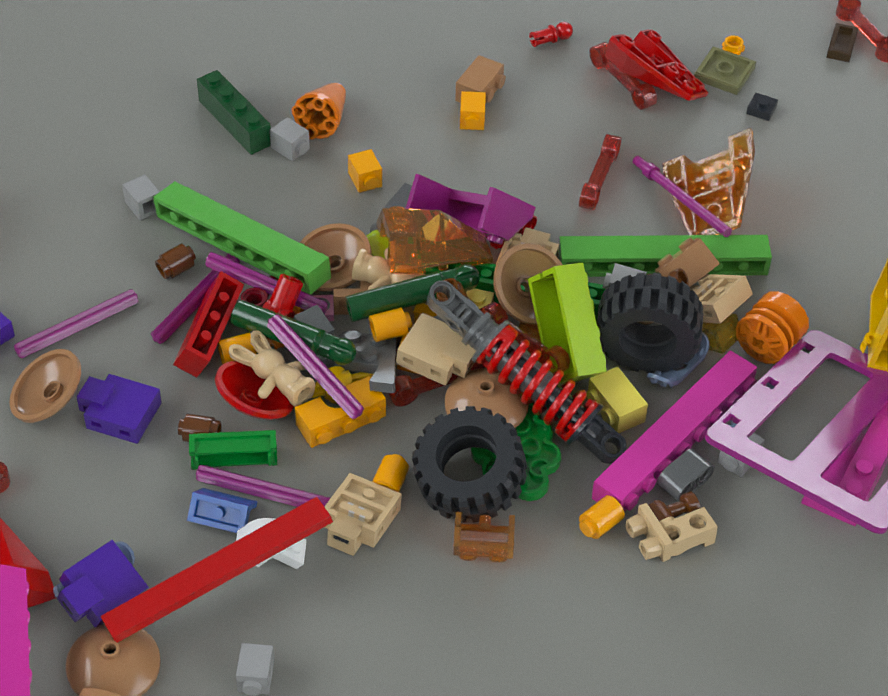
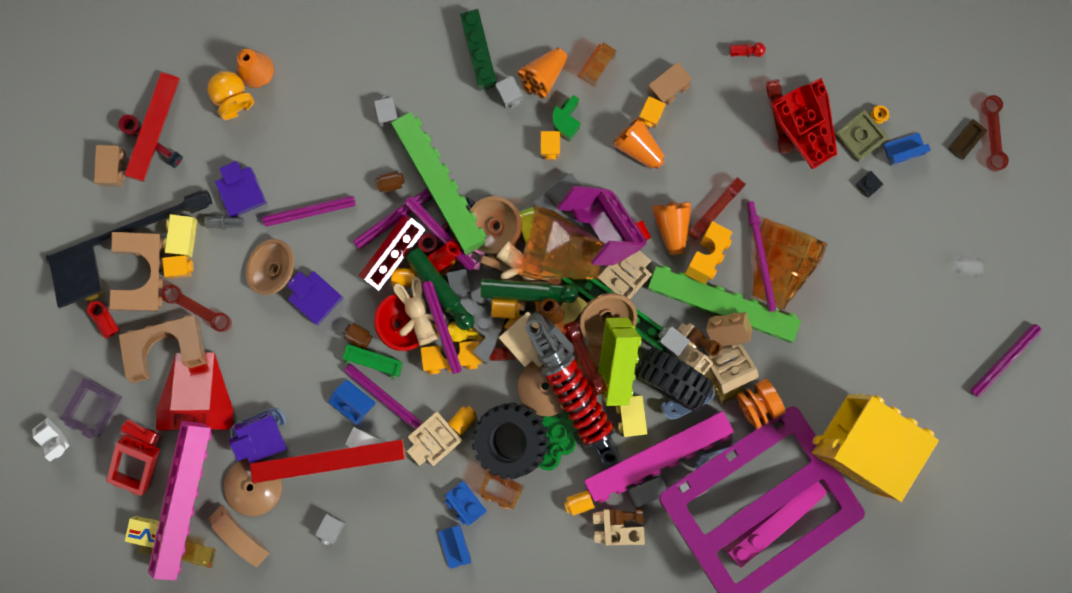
camera: 25 degrees right, 35 degrees up
(371, 138) = (563, 121): none -> green brick
(381, 90) = (597, 63): none -> clear orange window
(441, 575) = (465, 503): none -> blue bracket
(453, 630) = (455, 546): none -> blue panel
(475, 137) = (640, 144): none -> orange cone
(556, 195) = (673, 224): none -> orange cone
(617, 206) = (715, 240): none -> light orange arch
(784, 67) = (906, 149): none -> blue panel

